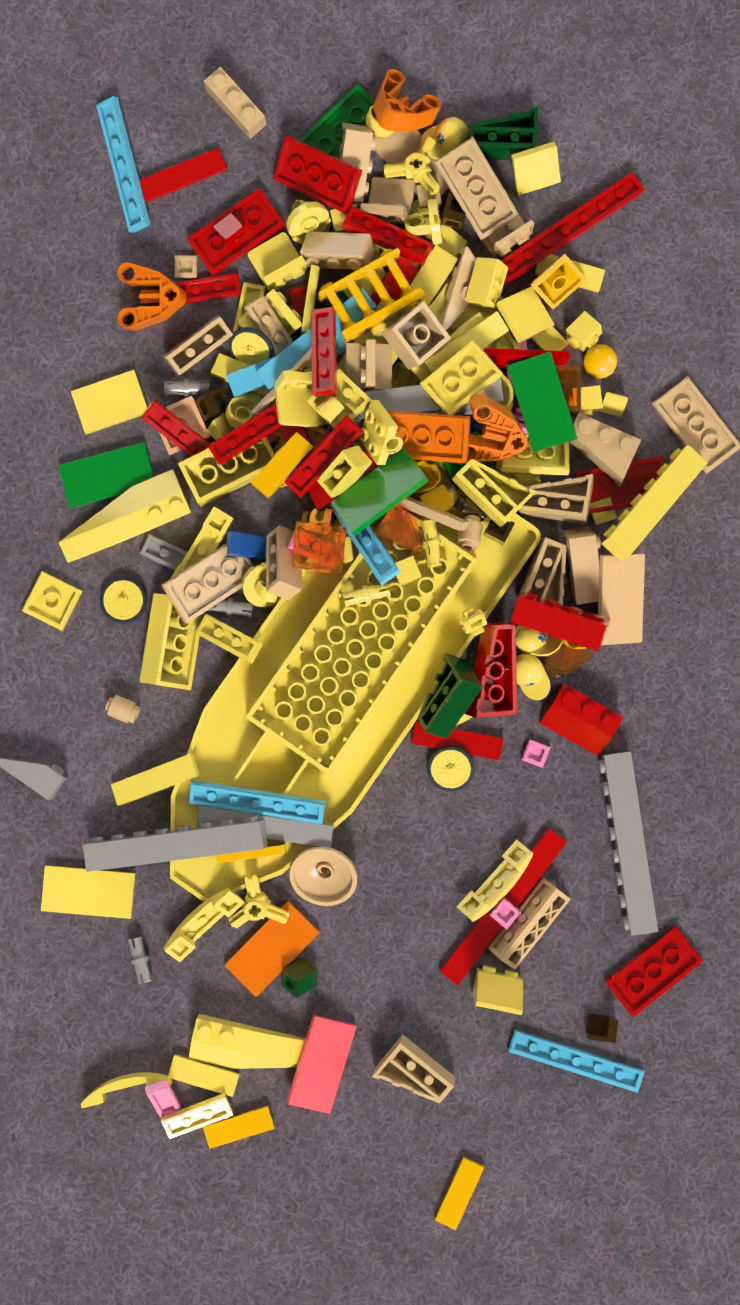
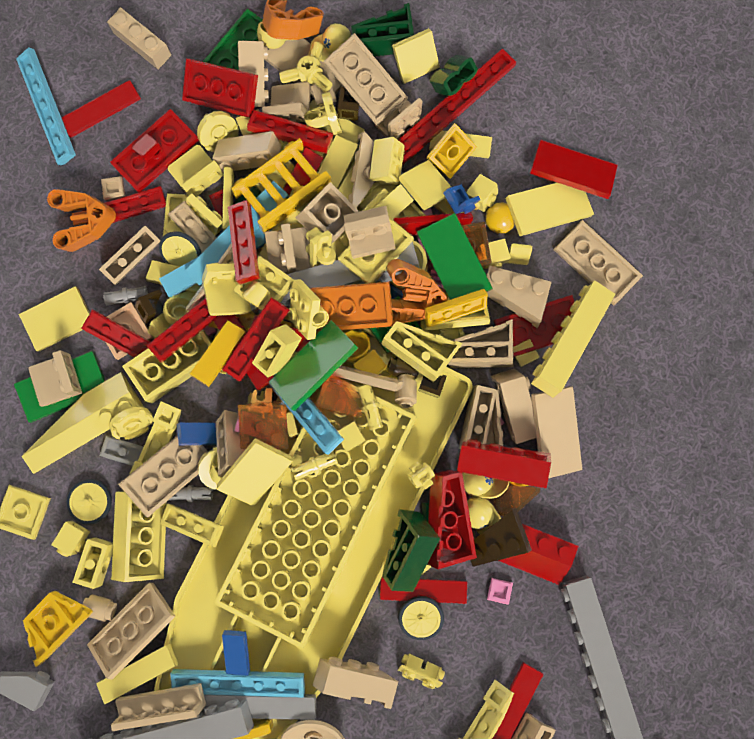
camera: 10 degrees left, 5 degrees down
(75, 717) = (53, 623): none -> yellow wing
(101, 635) = (71, 539): none -> light yellow brick
(103, 467) = (55, 379): none -> tan bracket
(124, 662) = (94, 563): none -> light yellow brick
(153, 735) = (130, 630): none -> tan plate
(175, 812) = (159, 706): none -> tan fence
(179, 524) = (131, 423): none -> light yellow tile
(260, 770) = (236, 652): none -> blue tile
(304, 592) = (254, 472): none -> light yellow tile
(375, 816) = (355, 680): none -> tan wedge
(403, 369) = (320, 247): none -> light yellow hips
(451, 827) = (429, 675): none -> light yellow hinge
(457, 361) = (369, 232): none -> tan bracket
(535, 453) = (456, 308): none -> yellow tile
(544, 700) = (501, 540): none -> dark brown wing
(558, 336) = (460, 200): none -> blue bracket
(577, 192) = (453, 75): none -> dark green brick
(654, 356) = (548, 207): none -> light yellow tile
(688, 319) = (574, 169): none -> red tile

